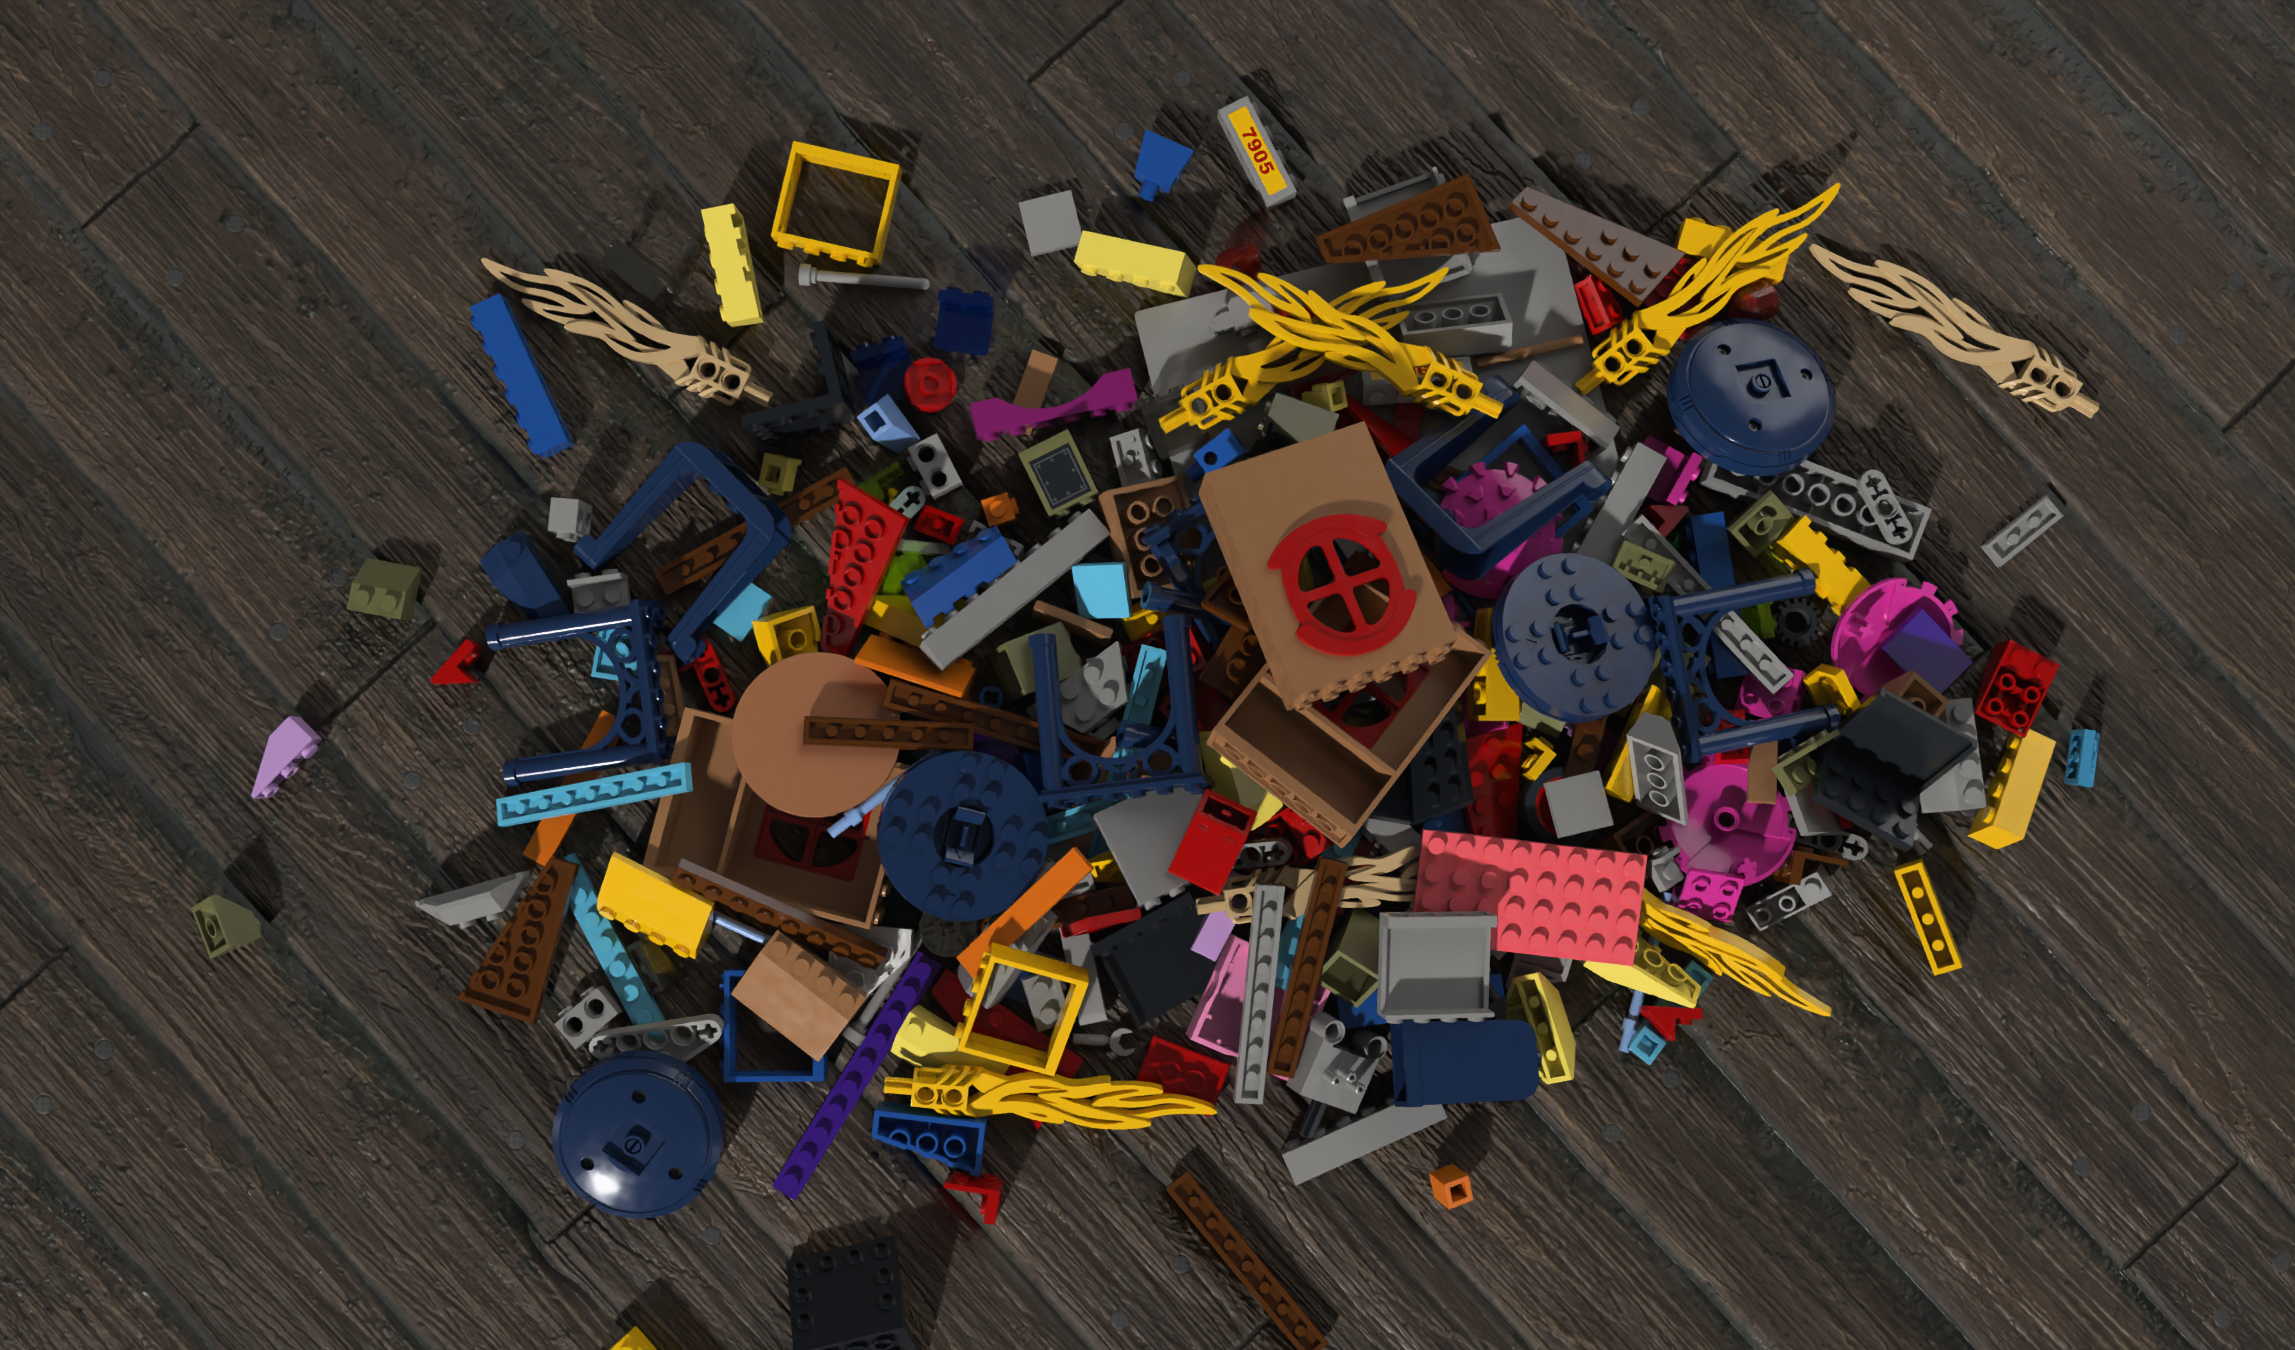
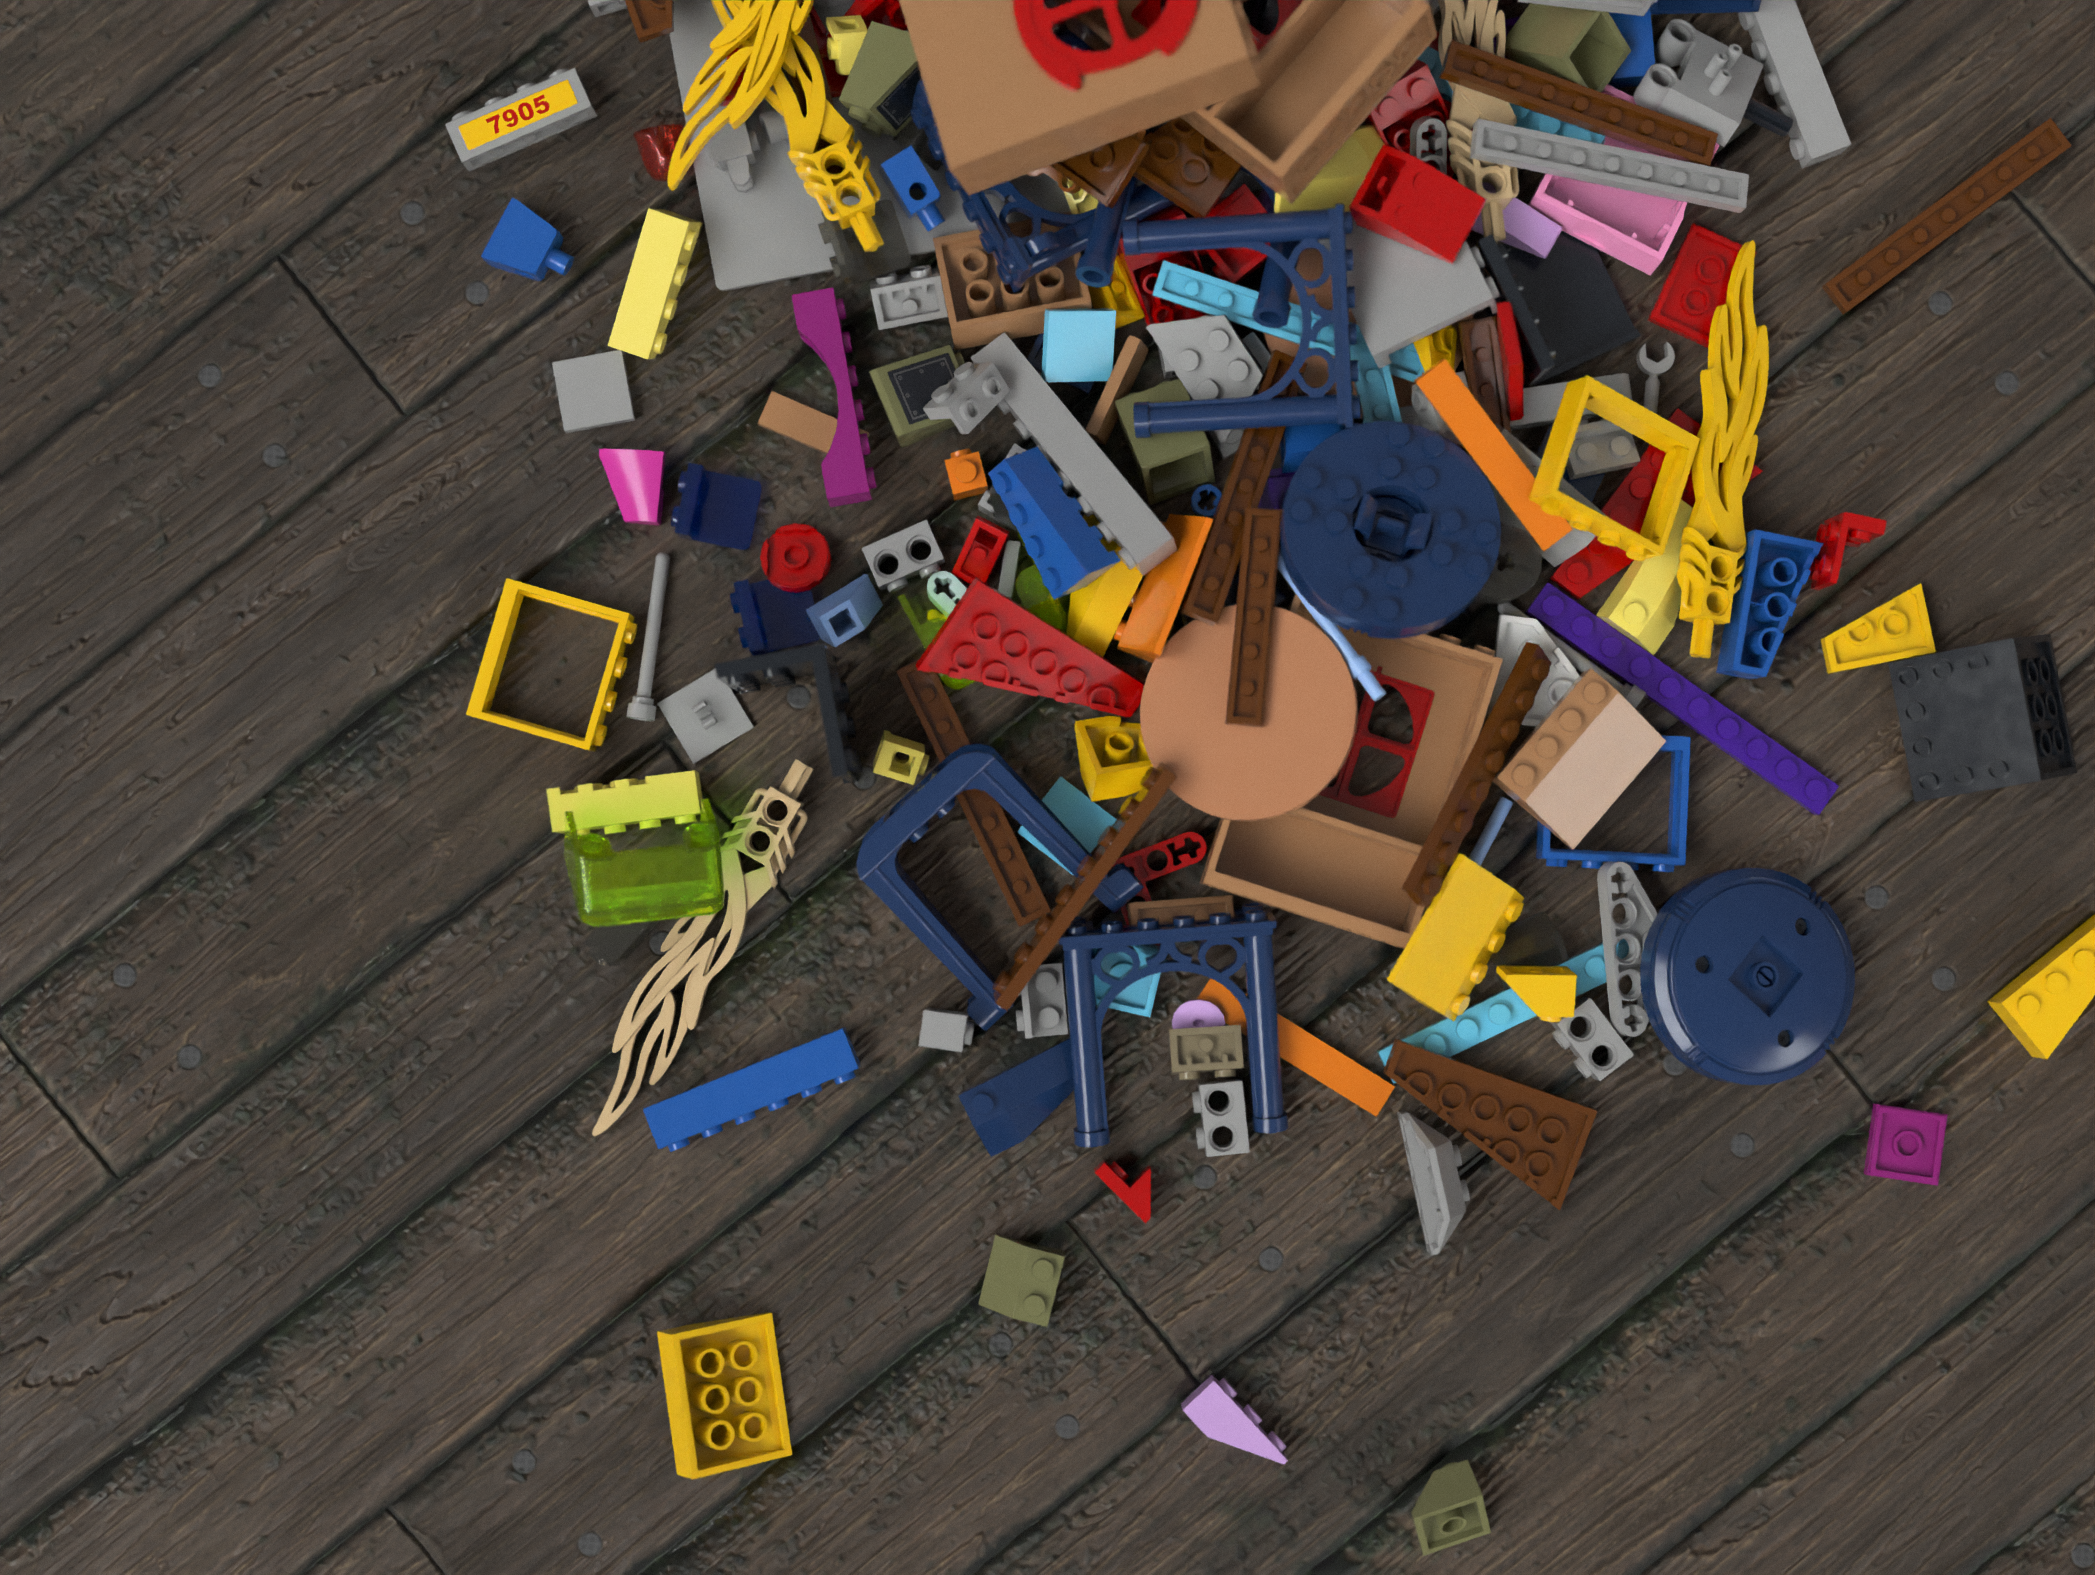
camera: 80 degrees left, 0 degrees up
(288, 369) = (724, 1394): none -> yellow slope
(516, 739) = (1231, 1116): none -> light grey brick
(521, 1265) = (1905, 1144): none -> magenta tile
(565, 719) = (1206, 1050): none -> dark tan bracket
(588, 713) = (1197, 1014): none -> lavender piece
(595, 794) = (1308, 1009): medium azure plate -> none
(621, 974) = (1544, 989): none -> yellow slope
(661, 283) = (646, 881): none -> clear neon green windscreen
(688, 620) = (1091, 873): none -> reddish brown plate
(797, 320) = (705, 716): none -> light grey piece
(914, 1228) = (1883, 635): none -> yellow wing
(981, 260) = (636, 483): none -> dark pink slope
(1053, 506) = (968, 395): none -> light grey bracket

